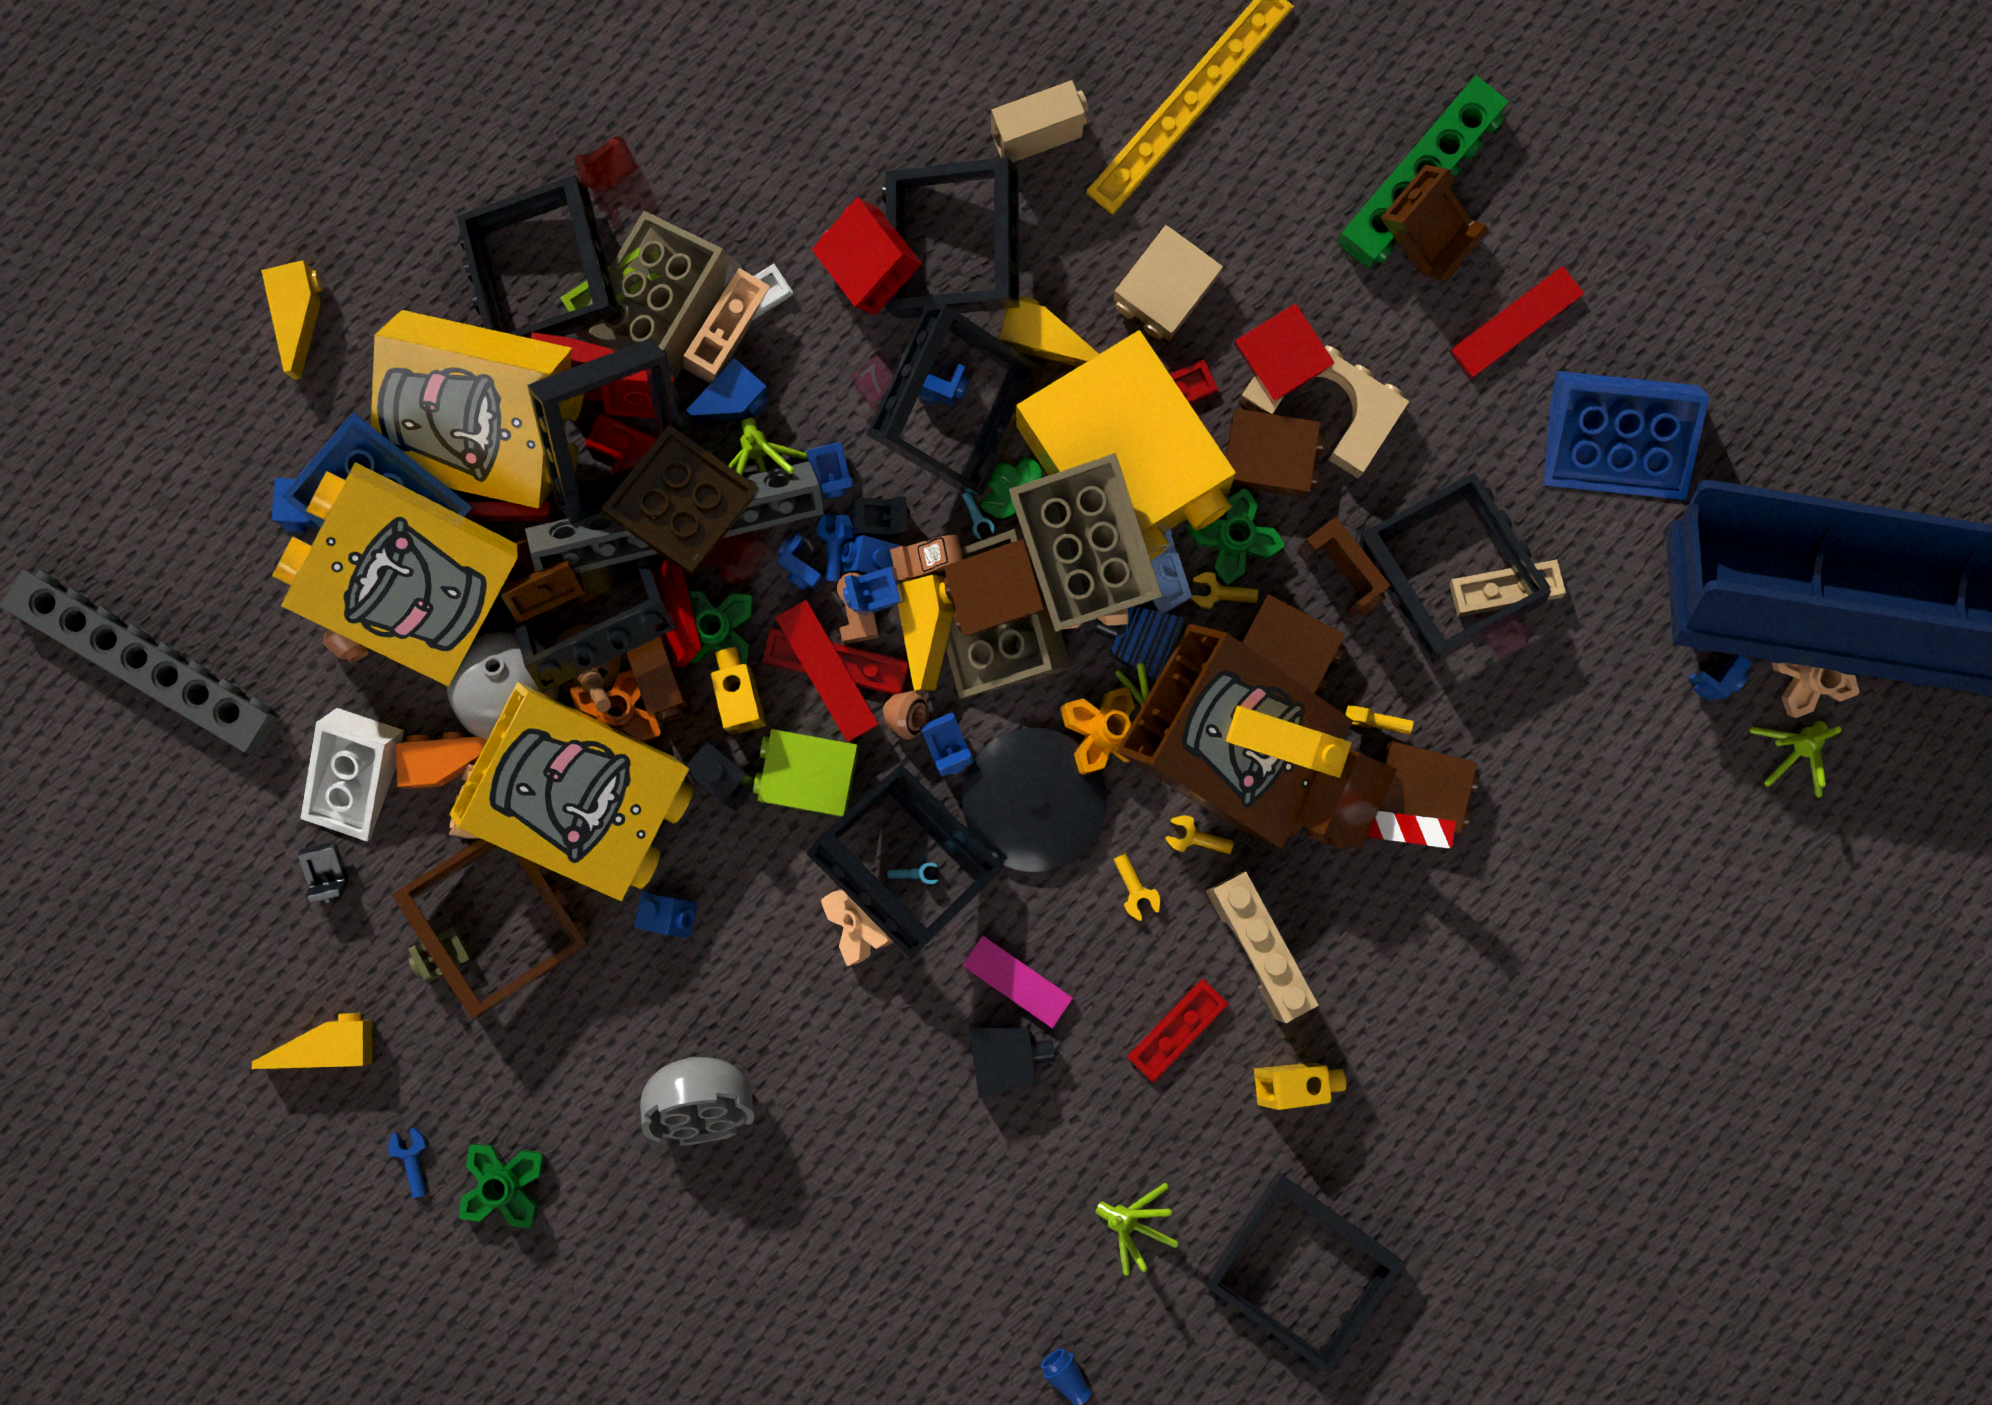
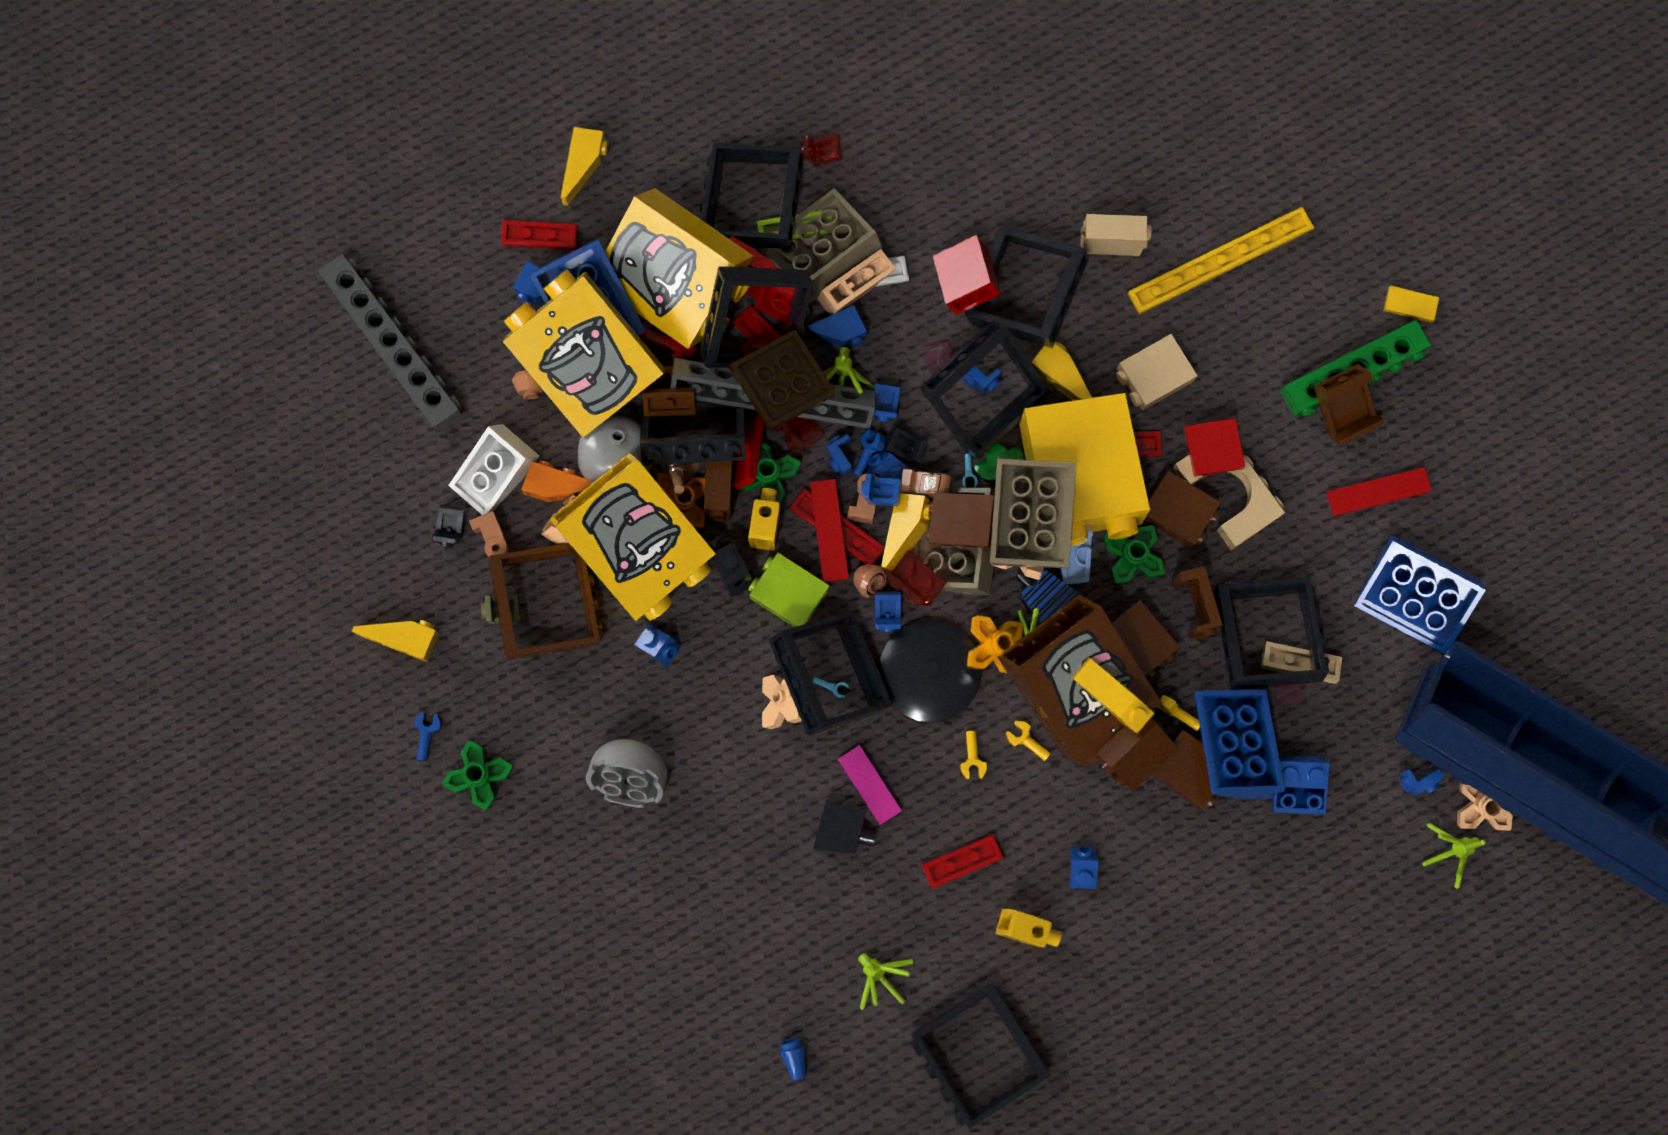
camera: 20 degrees right, 5 degrees down
(278, 434) = (539, 234): none -> red tile
(385, 860) = (492, 533): none -> nougat leg
(967, 689) = (916, 580): none -> clear red bracket
(1221, 592) = (1109, 587): yellow bar -> none
(1279, 975) = (1038, 797): tan arch -> none
(1336, 972) = (1083, 867): none -> blue bracket
(1413, 829) = (1172, 790): sticker -> none
(1459, 56) = (1411, 304): none -> yellow tile
(1474, 730) = (1239, 743): none -> blue slope
(1568, 748) = (1304, 784): none -> blue slope

